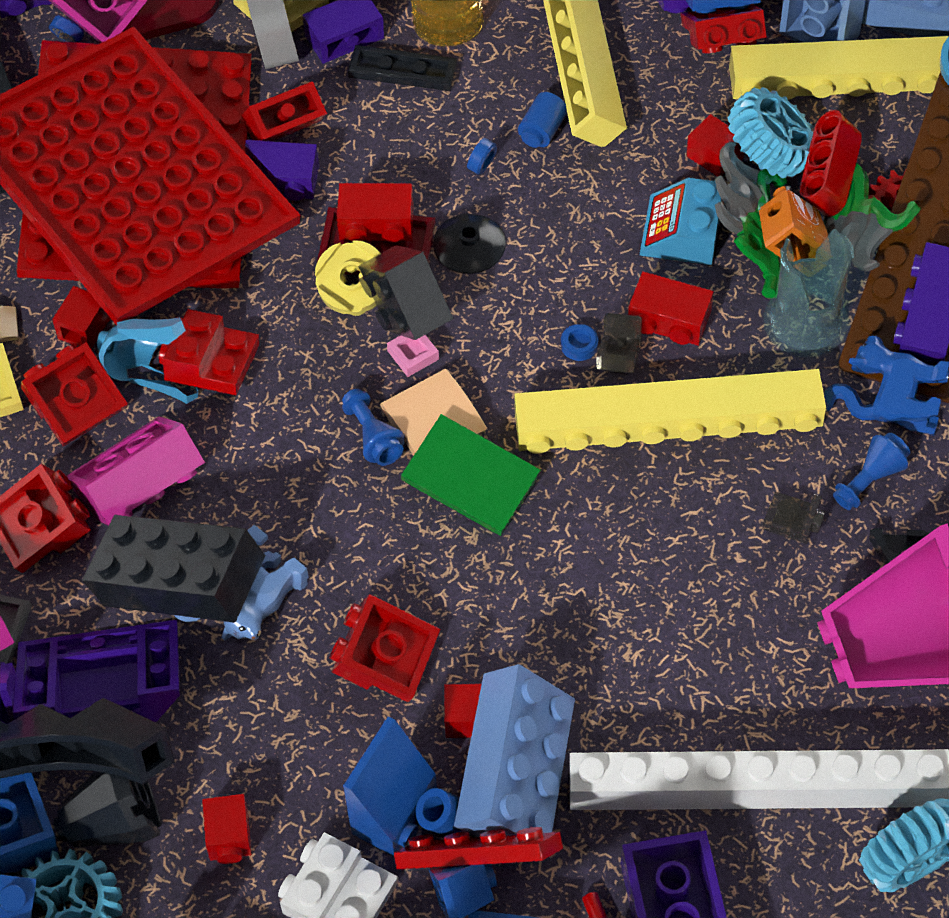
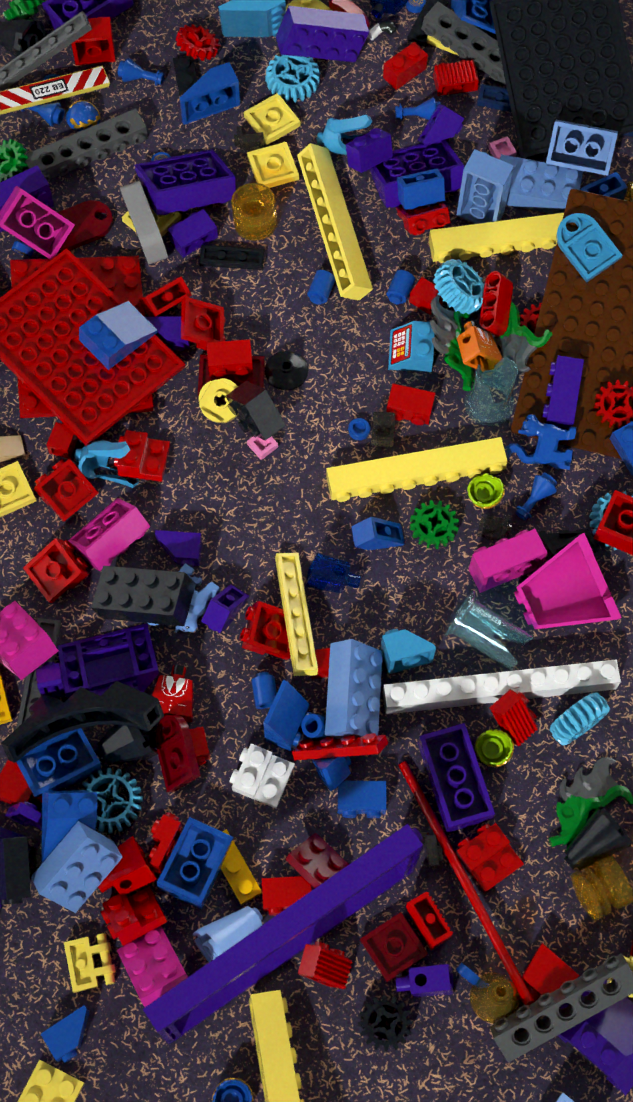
camera: 10 degrees left, 10 degrees up
(190, 156) = (115, 333): none -> blue slope
(190, 835) = (176, 752): none -> dark red tile
(204, 741) = (175, 693): none -> red torso
(253, 498) = (181, 546): none -> dark purple slope
(310, 605) = (224, 608): none -> dark purple slope
(336, 153) = (201, 322): none -> red plate
(355, 738) = (264, 690): none -> blue brick
(380, 440) = (251, 503): blue piece -> none
(420, 406) = (279, 484): light nougat slope -> none
(432, 626) = (296, 614): none -> light yellow tile
(470, 475) = (306, 519): green tile -> none
(482, 156) = (288, 314): blue tile -> none
(500, 564) = (330, 574): none -> clear blue torso
(589, 508) = (377, 534): none -> blue slope
(616, 700) = (405, 650): none -> dark azure slope
(673, 129) = (400, 287): none -> blue brick
(701, 514) = (424, 521): none -> green gear
(747, 668) = (478, 624): none -> clear light blue piece
(757, 883) = (494, 748): none -> lime hair
(784, 455) = (485, 491): none -> lime hair
(797, 831) = (515, 716): none -> red brick
(809, 566) = (507, 560): none -> dark pink brick

